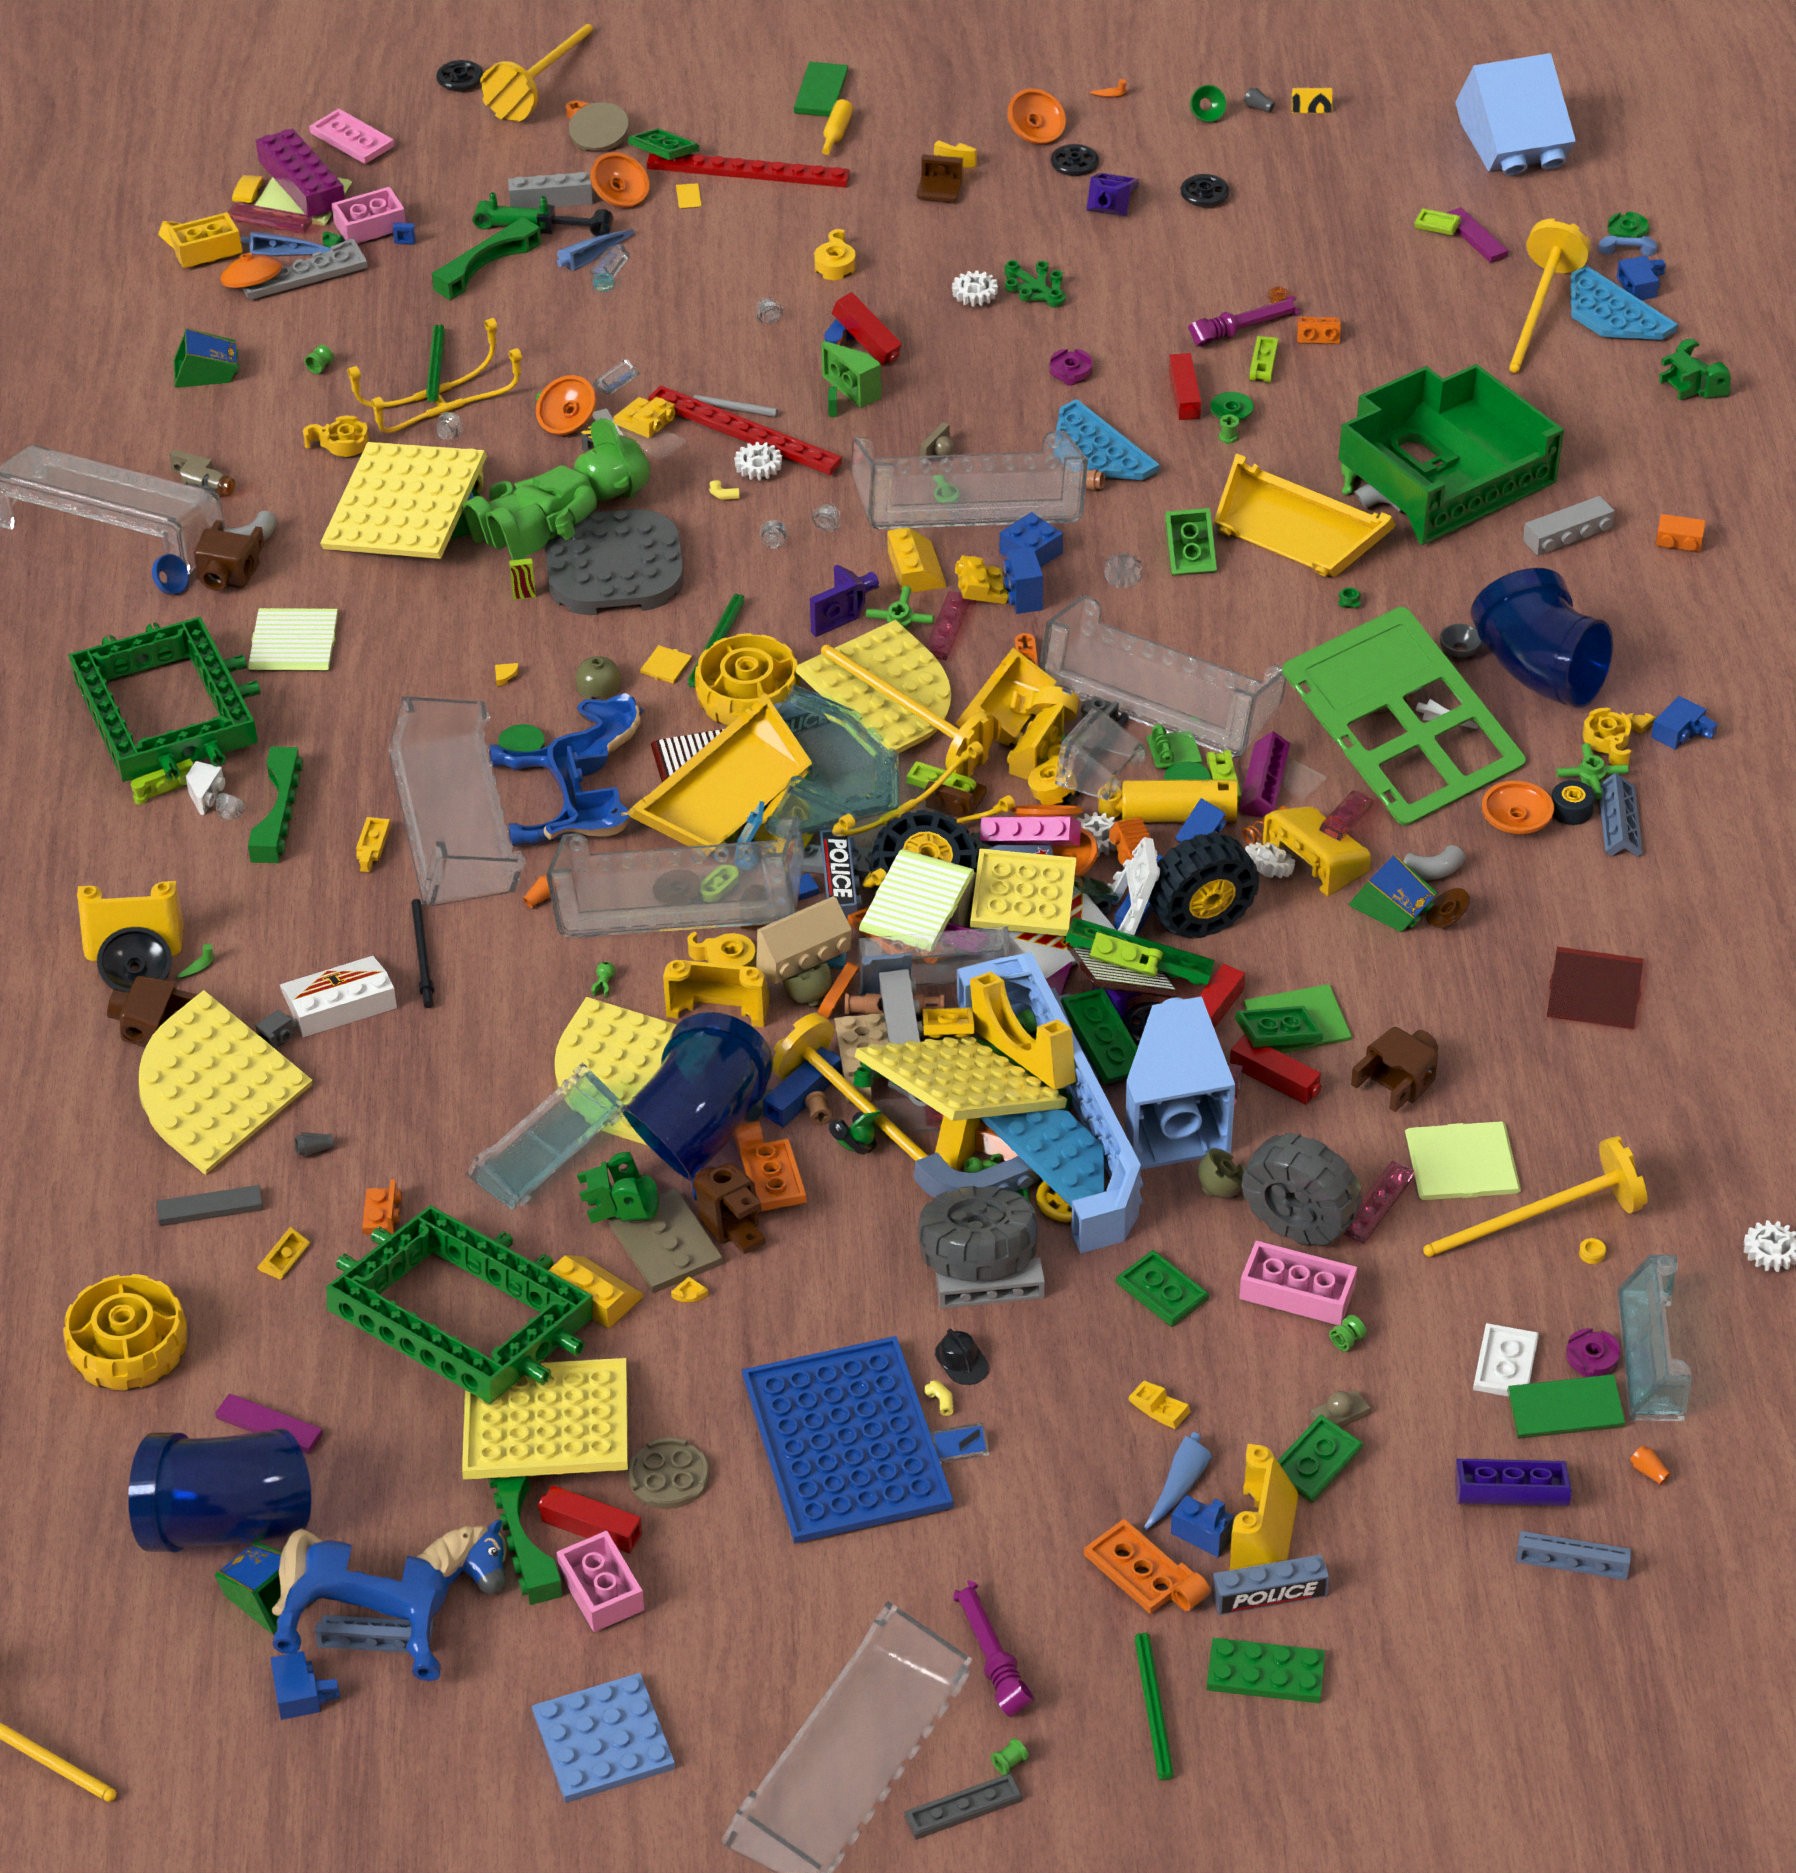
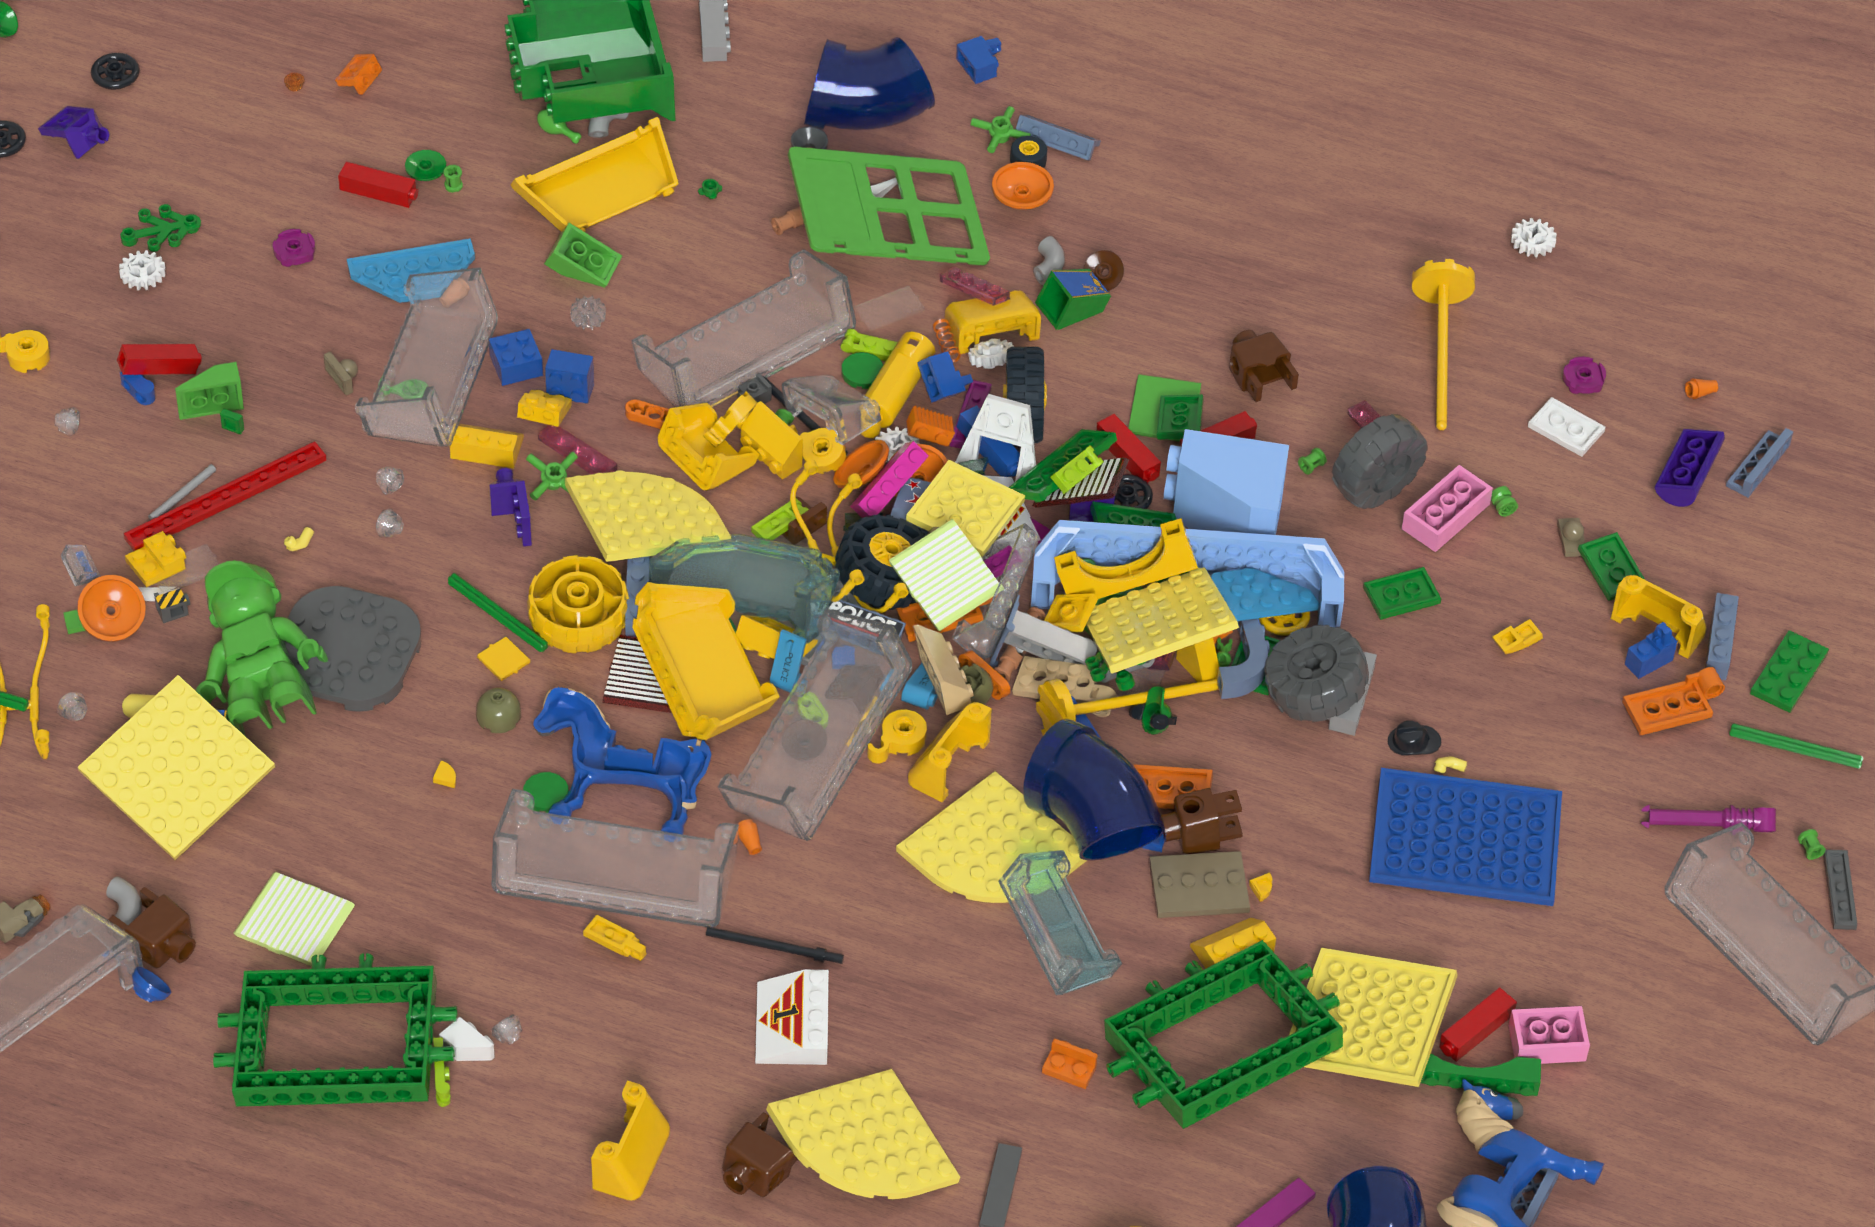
camera: 70 degrees left, 5 degrees up
(133, 948) = (685, 1146): black dish -> none
(200, 964) = (695, 1113): bright green bar -> none
(267, 837) = (484, 976): green arch -> none
(276, 1028) = (818, 1074): dark grey brick -> none
(284, 1254) = (1083, 1151): yellow slope -> none
(312, 1143) = (969, 1091): dark grey cone -> none
(341, 438) = (30, 792): yellow piece -> none
(522, 579) = (340, 716): tile -> none
(603, 1737) = (1690, 1087): medium blue plate -> none
(605, 972) = (873, 823): bright green arm -> none
(631, 1197) = (1148, 889): green piece -> none
(668, 1473) = (1450, 952): dark tan tile -> none
(758, 461) = (278, 501): white gear -> none
(816, 1103) = (1110, 733): medium nougat bush -> none
(960, 1442) = (1503, 766): slope -> none
(980, 727) = (760, 481): yellow piece -> none
(1171, 748) = (821, 362): bright green hinge -> none
(1185, 1470) = (1590, 649): medium blue piece -> none
(1220, 1175) = (1318, 511): olive cylinder -> none
(1226, 325) = (317, 125): magenta piece -> none
(1263, 358) = (374, 122): lime plate -> none
(1264, 775) = (887, 317): magenta brick -> none
(1462, 1160) = (1360, 371): yellowish green piece -> none
(1565, 1406) = (1628, 410): green tile -> none
(1592, 1251) = (1485, 336): yellow tile -> none
(1595, 987) = (1225, 226): clear red piece -> none
(1608, 734) = (966, 102): yellow piece -> none
(1641, 722) = (957, 82): yellow tile -> none
(1654, 1382) = (1602, 335): windscreen -> none

